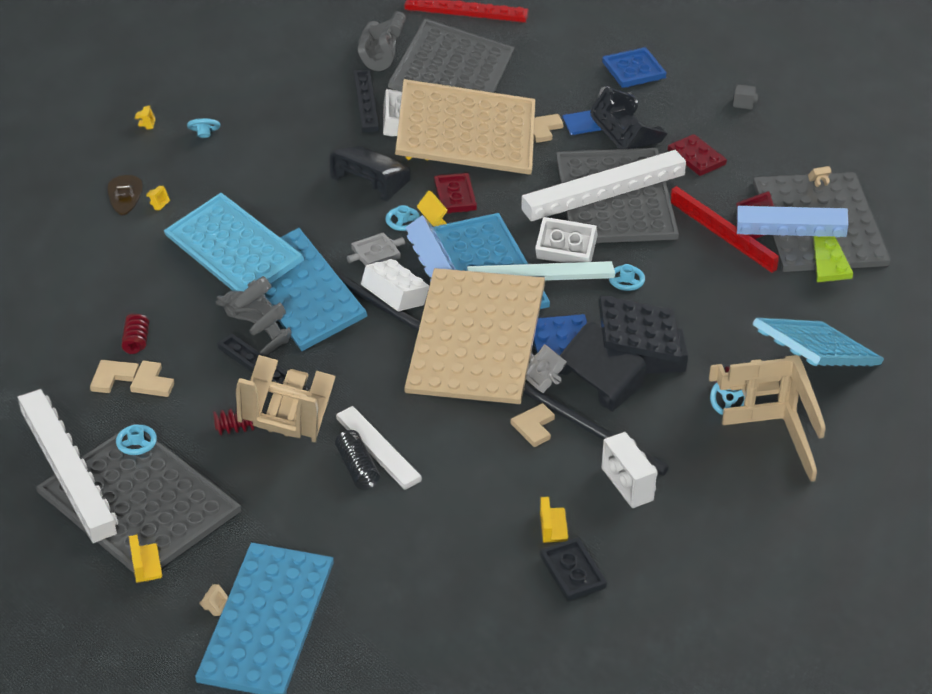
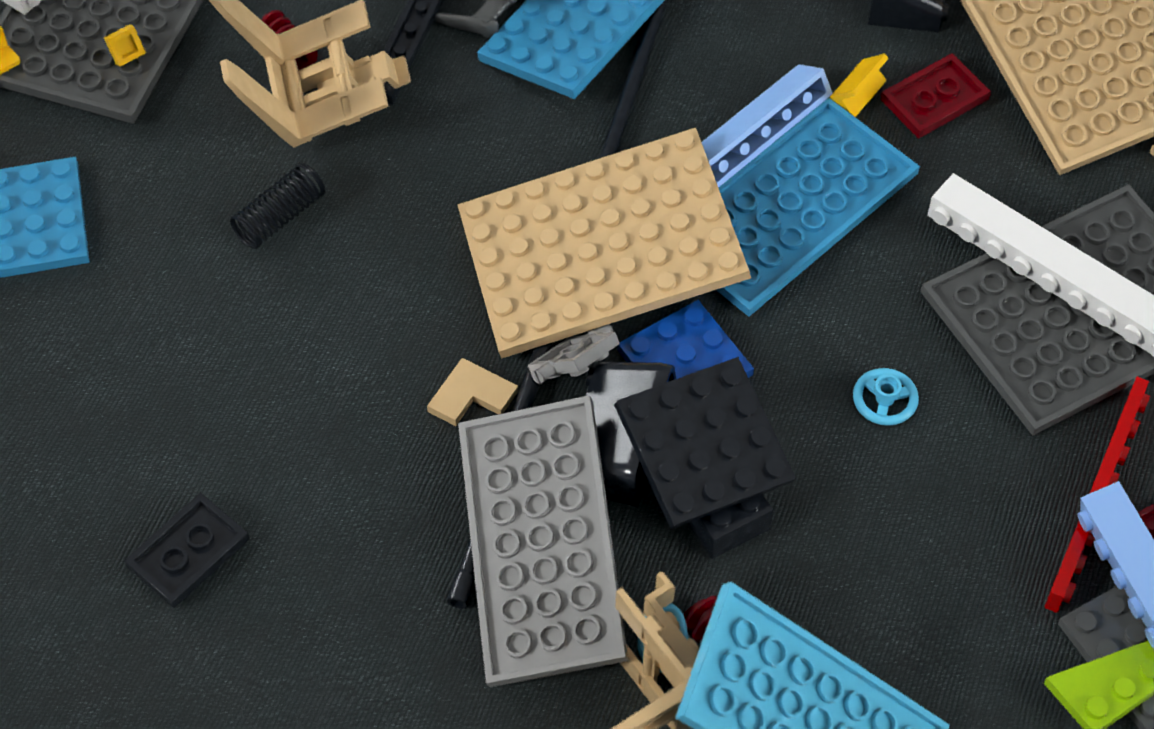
camera: 65 degrees right, 15 degrees up
(187, 488) = (124, 45): none -> yellow tile
(375, 249) = (735, 53): light grey plate -> none
(379, 448) = (325, 224): white tile -> none
(395, 285) = (657, 99): white brick -> none
(403, 214) = (836, 54): medium azure piece -> none
(552, 522) = (273, 489): yellow panel -> none
(553, 271) = (807, 274): light aqua tile -> none
(566, 241) = (893, 277): white brick -> none
(629, 469) = (409, 547): white brick -> none
(655, 414) = (541, 542): none -> light grey plate

